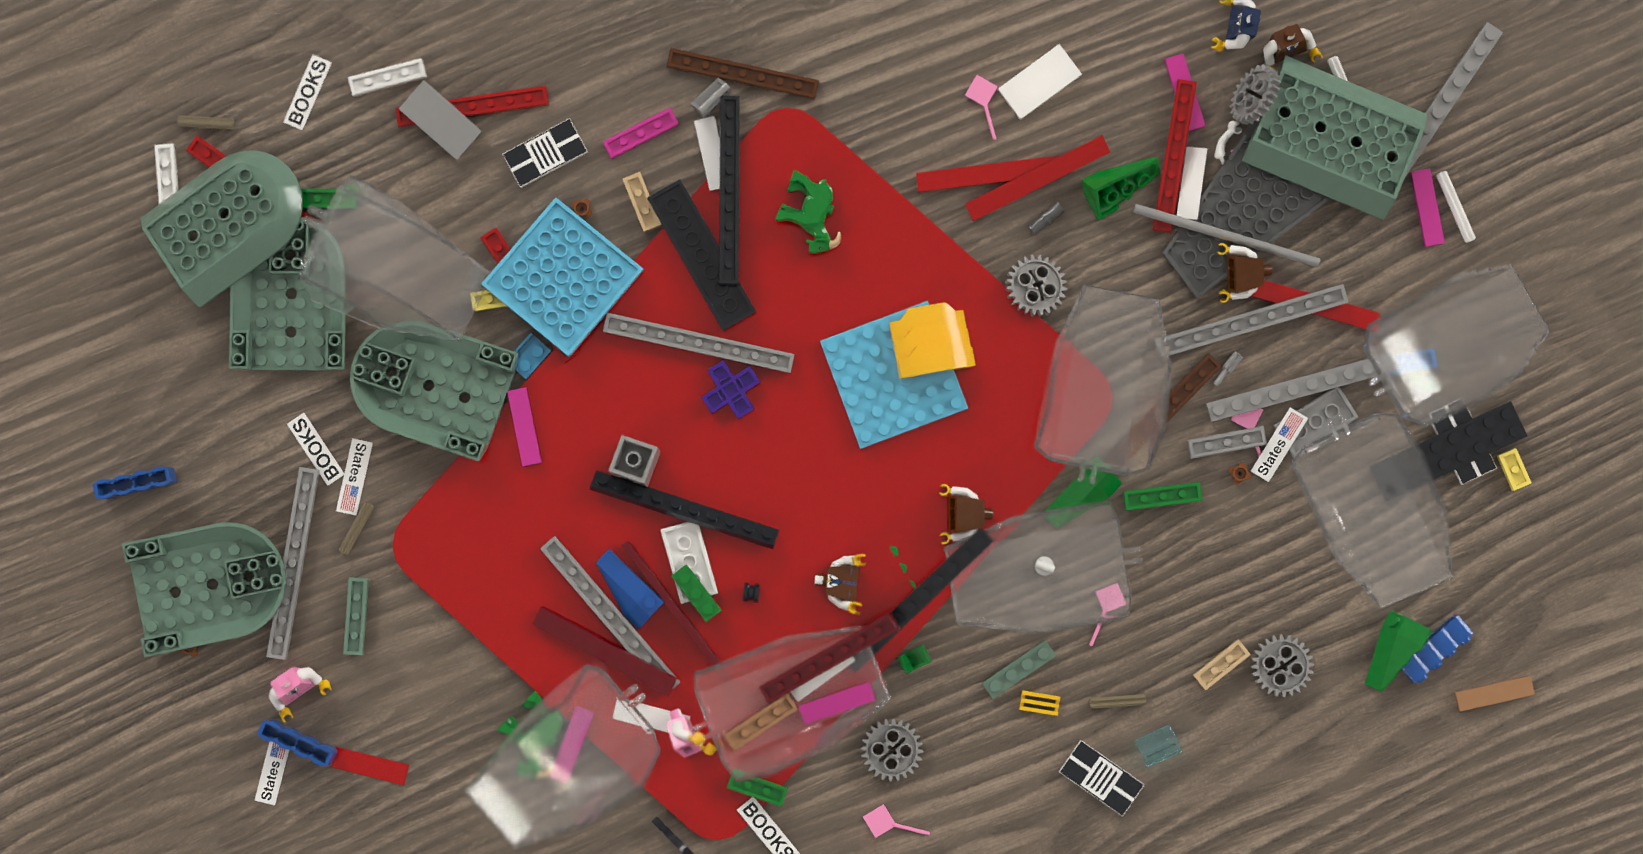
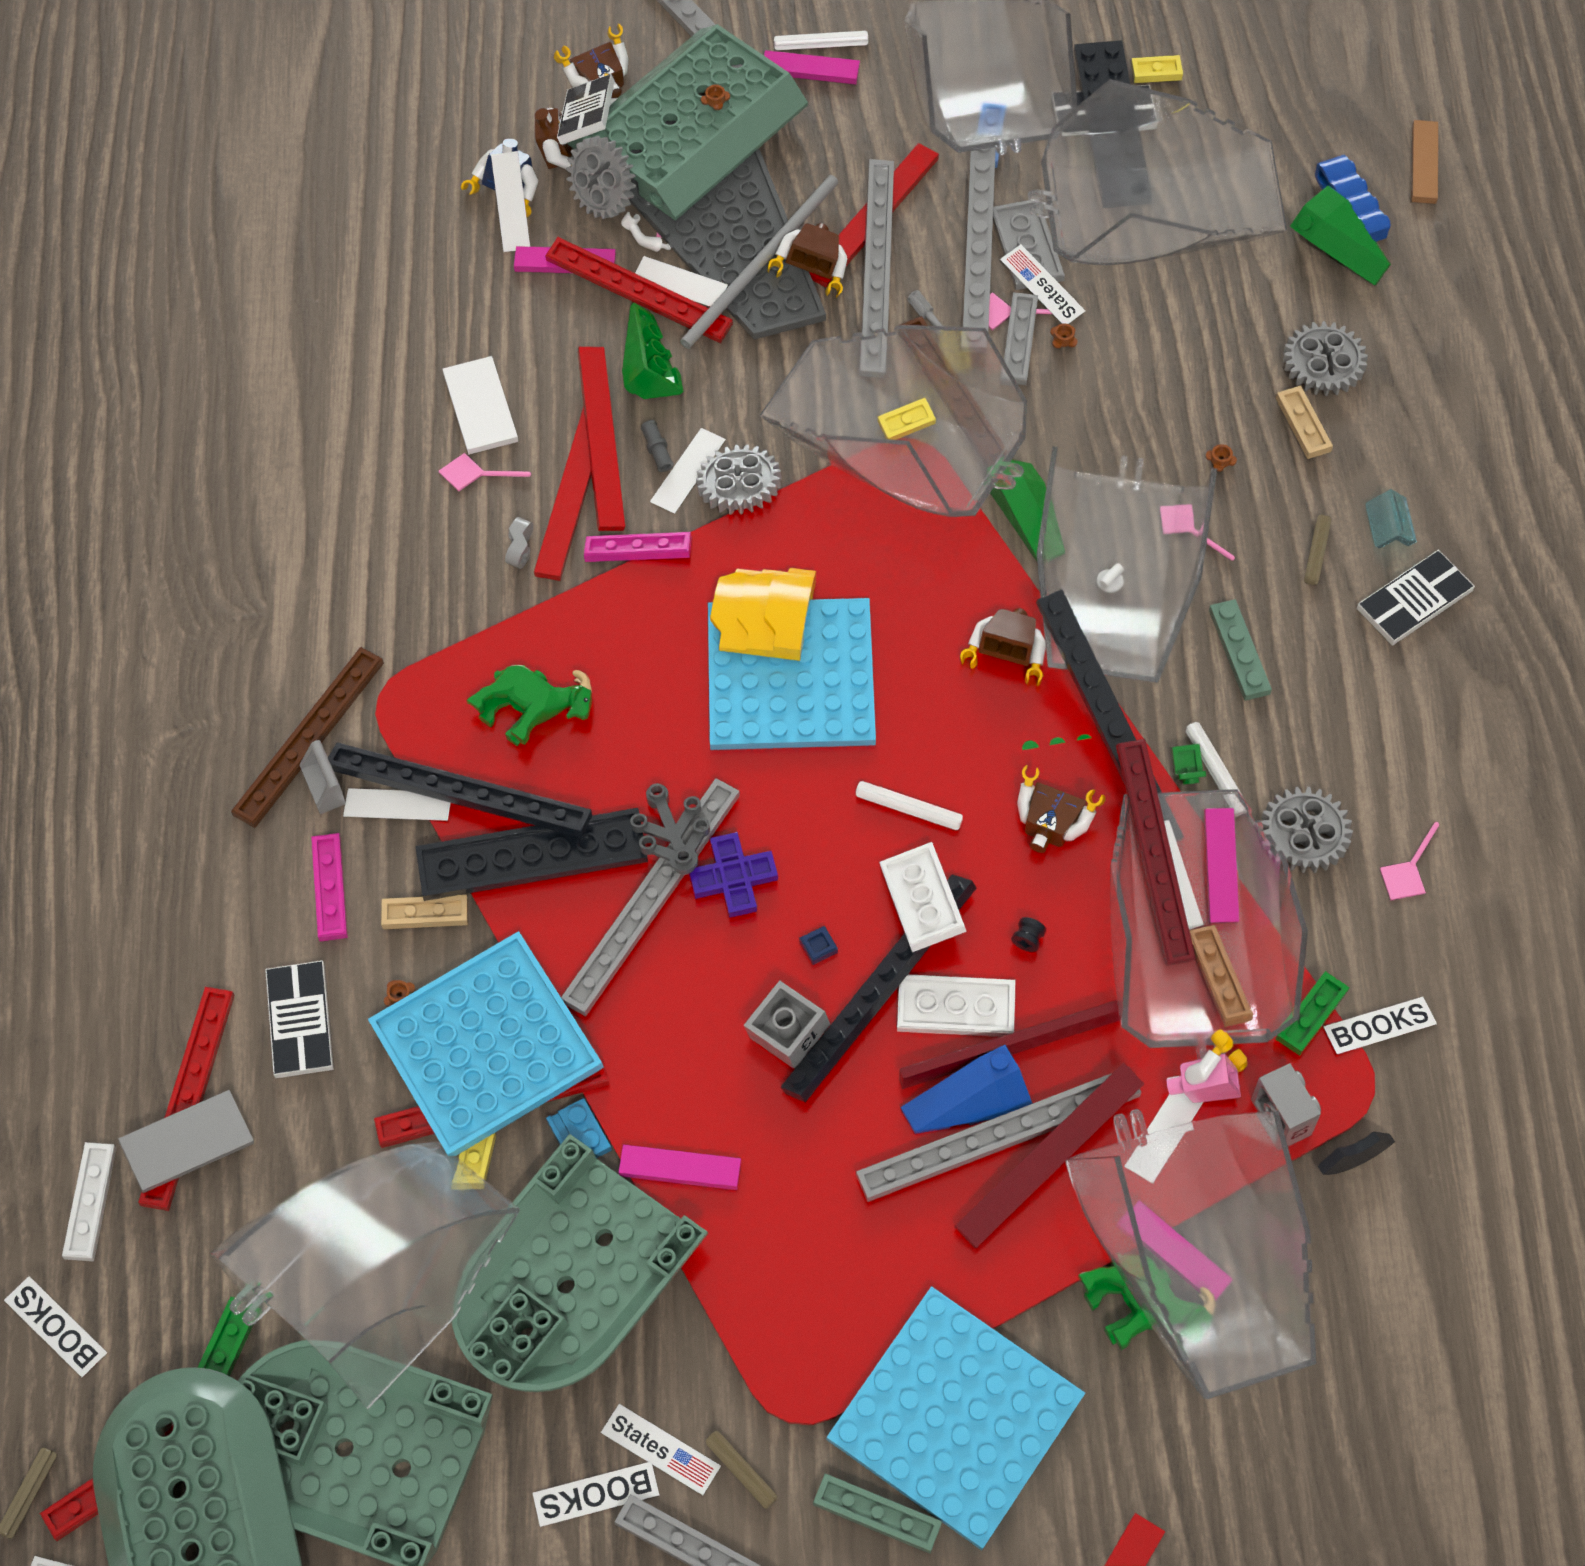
camera: 75 degrees left, 25 degrees down
(427, 643) = (956, 1417): none -> medium azure plate
(682, 787) = (1286, 1092): none -> light grey brick
(696, 593) = (1005, 1004): green plate -> none
(701, 460) = (818, 945): none -> dark blue tile
(744, 341) = (671, 832): none -> dark grey plant
(751, 517) = (922, 897): none -> white tile
(820, 485) = (909, 805): none -> white axle
(919, 679) = (1210, 757): none -> white axle
(939, 151) = (518, 551): none -> light grey piece
(958, 236) = (637, 546): none -> dark pink tile
(1031, 709) = (1301, 621): yellow tile -> none
(1036, 245) = (684, 473): none -> white sticker
(1120, 386) = (906, 419): none -> light yellow plate
(1162, 496) = (1064, 421): green plate -> none
(1172, 619) = (1221, 451): none -> dark orange plate
(1214, 36) = (510, 200): none -> white sticker
(1314, 59) = (586, 109): none -> tile
(1354, 150) = (715, 97): none -> dark orange plate
(1366, 51) = (597, 63): none -> torso

